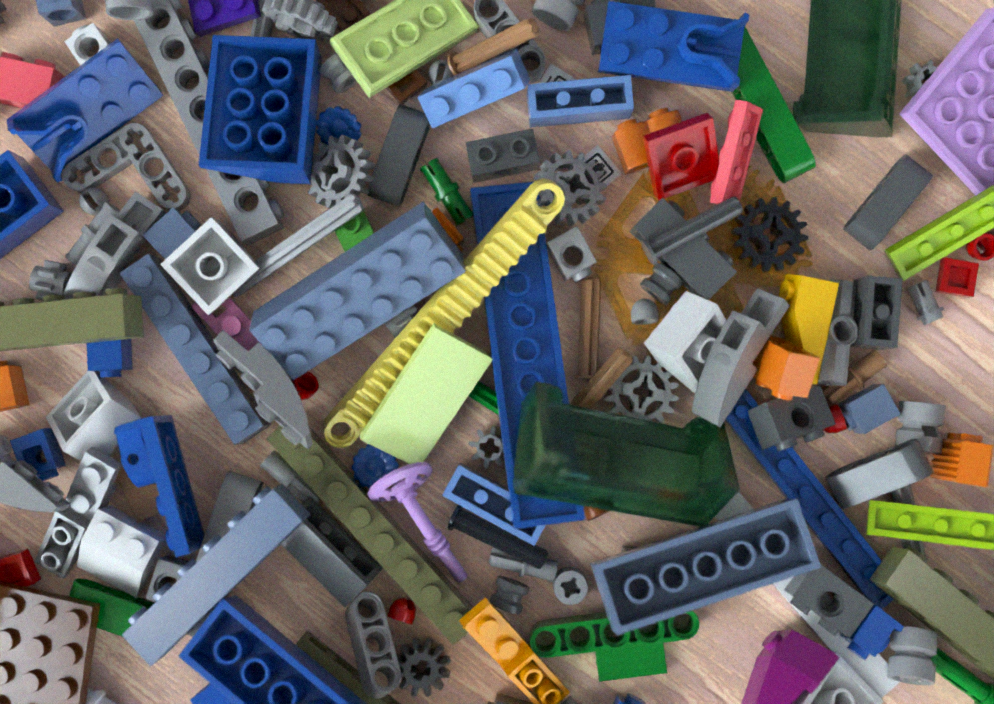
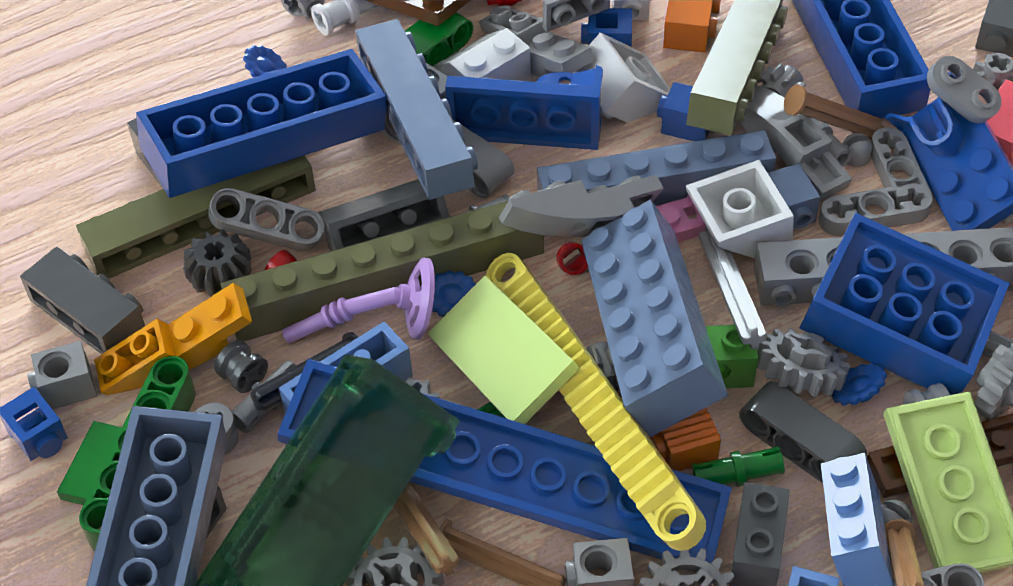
camera: 115 degrees right, 35 degrees down
(28, 110) = (964, 90): none -> light grey plate
(85, 248) = (802, 102): none -> medium nougat axle

